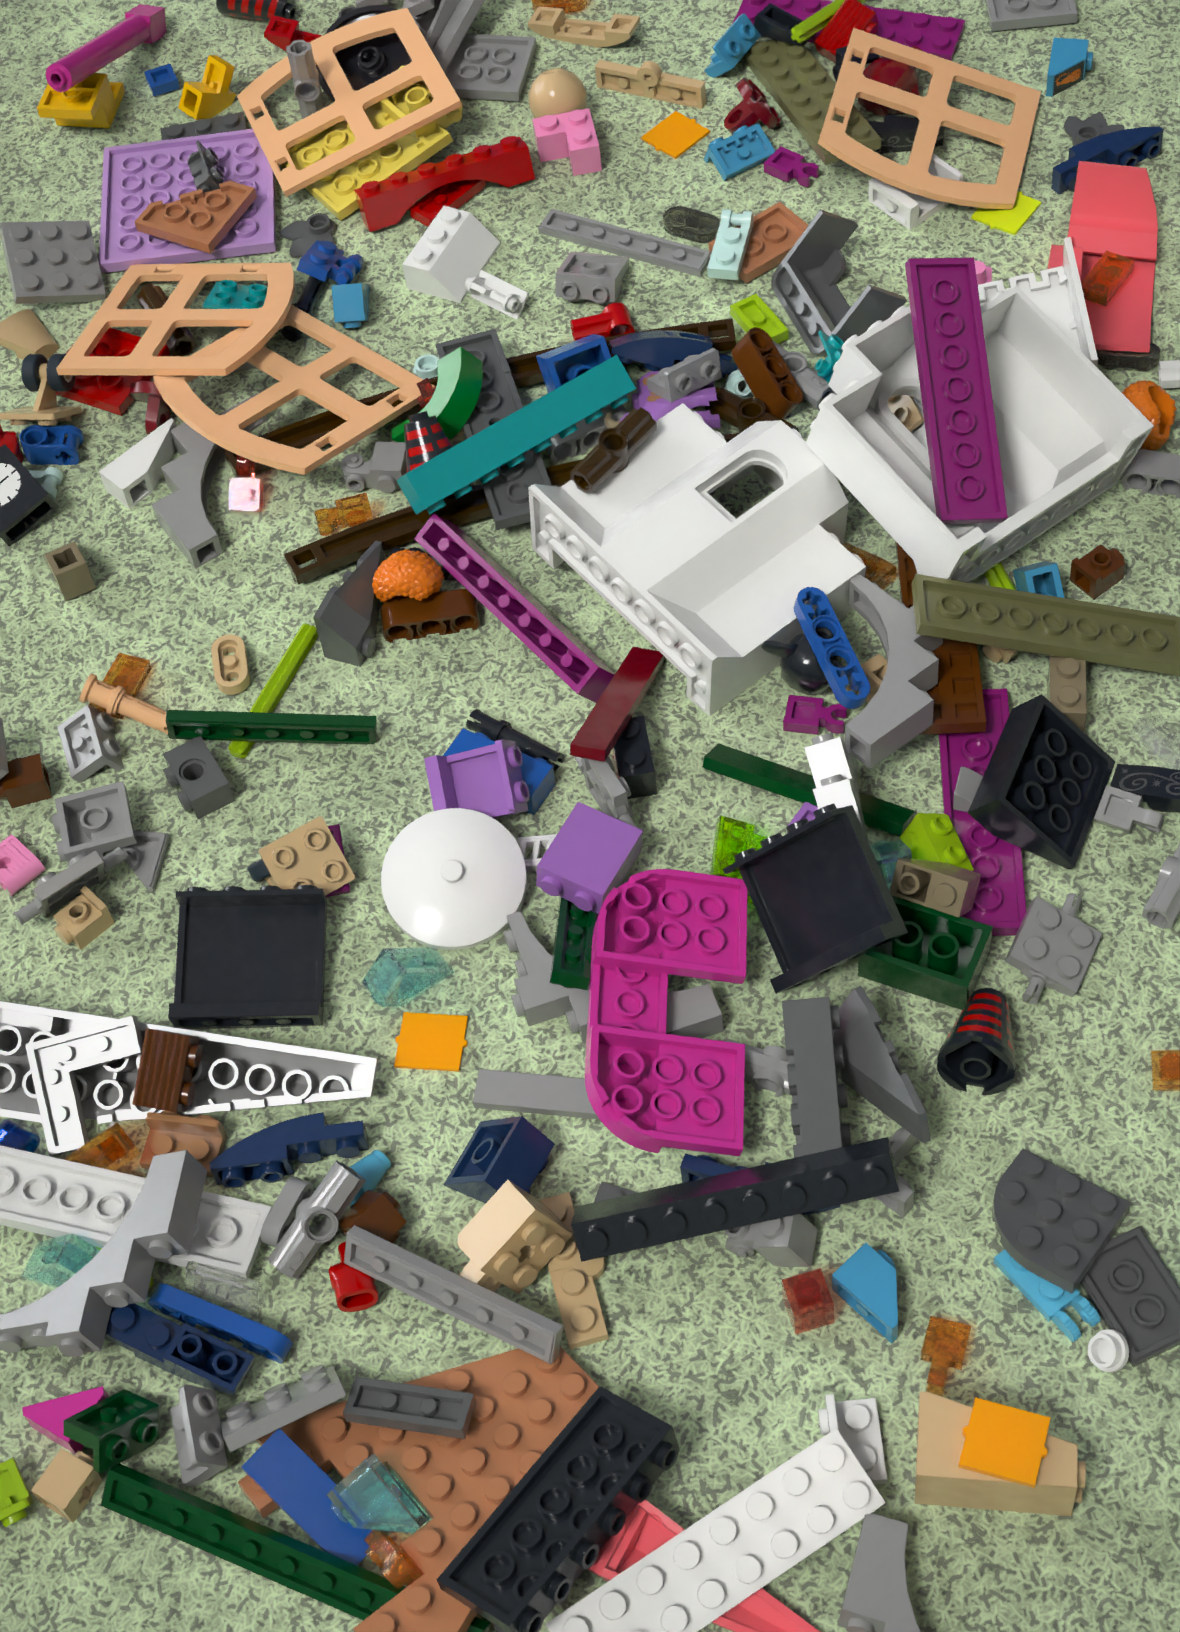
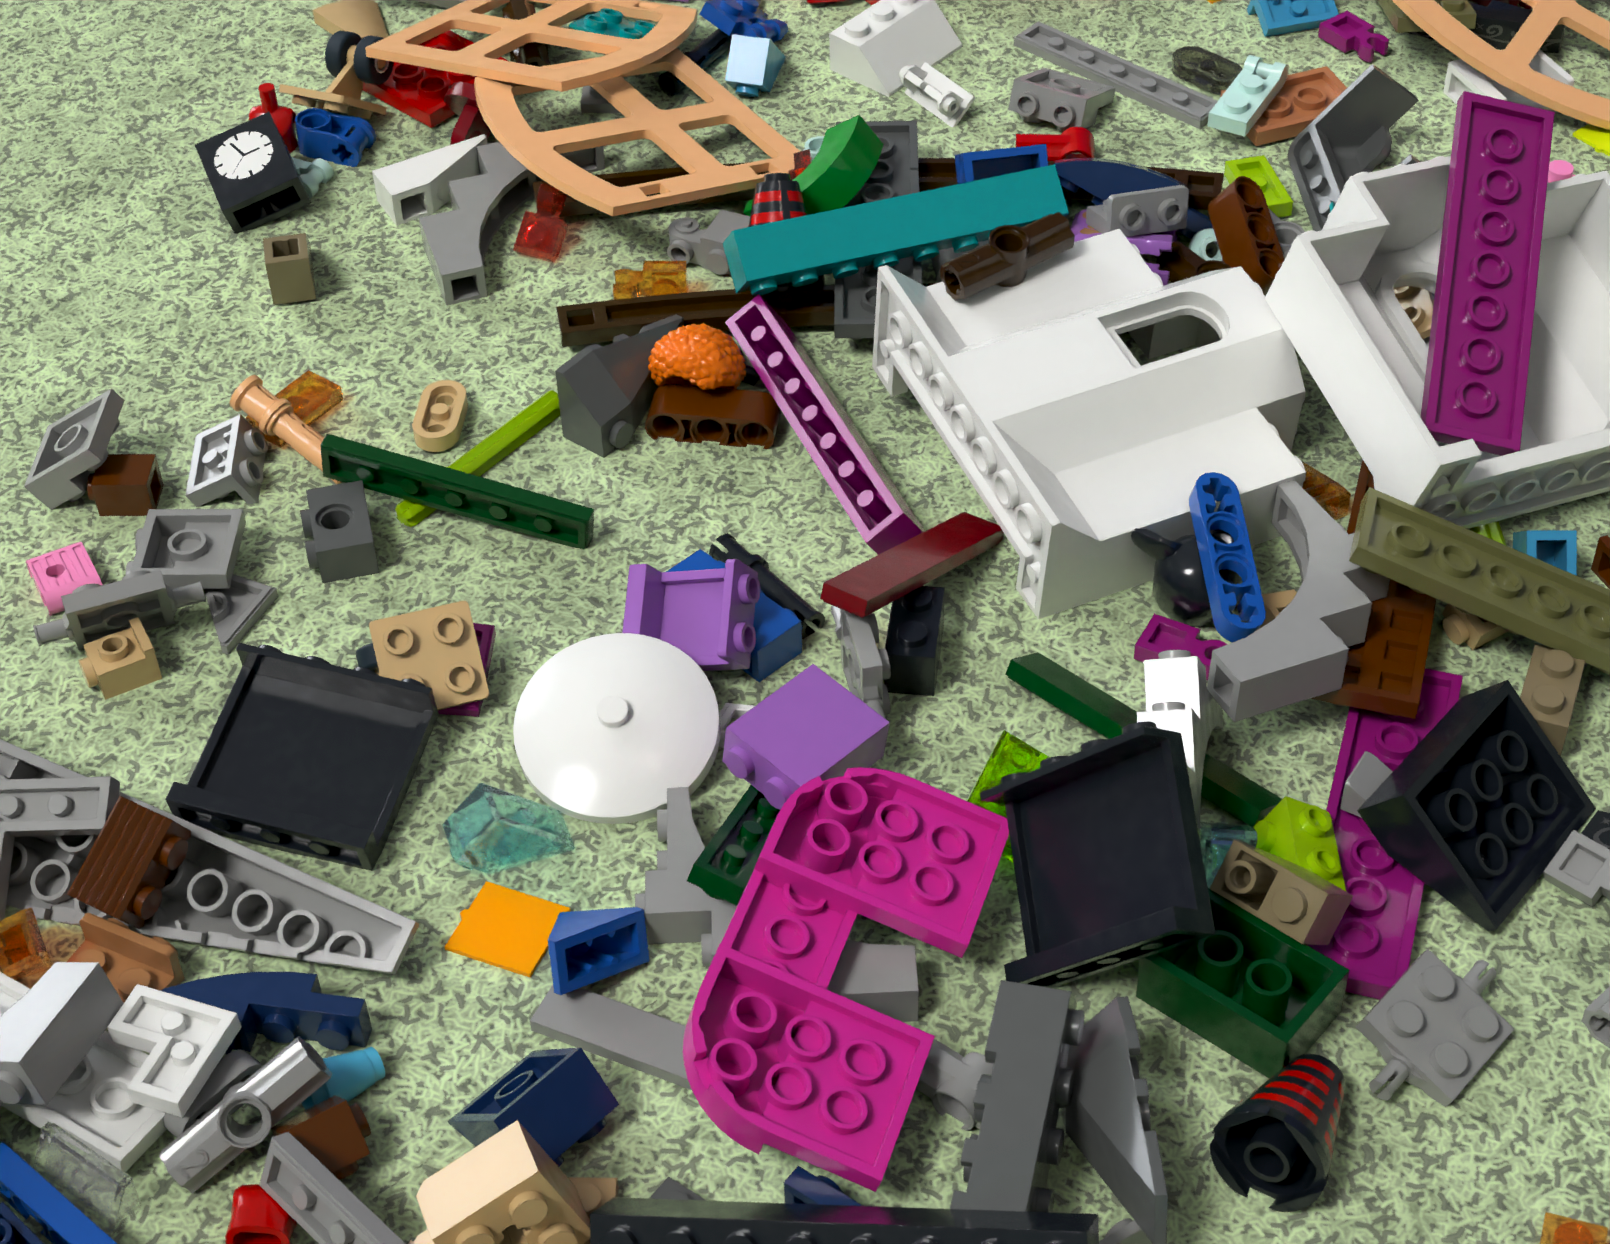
camera: 10 degrees right, 10 degrees down
(258, 1183) = (183, 1045): none -> white plate
(499, 1039) = (595, 946): none -> blue slope

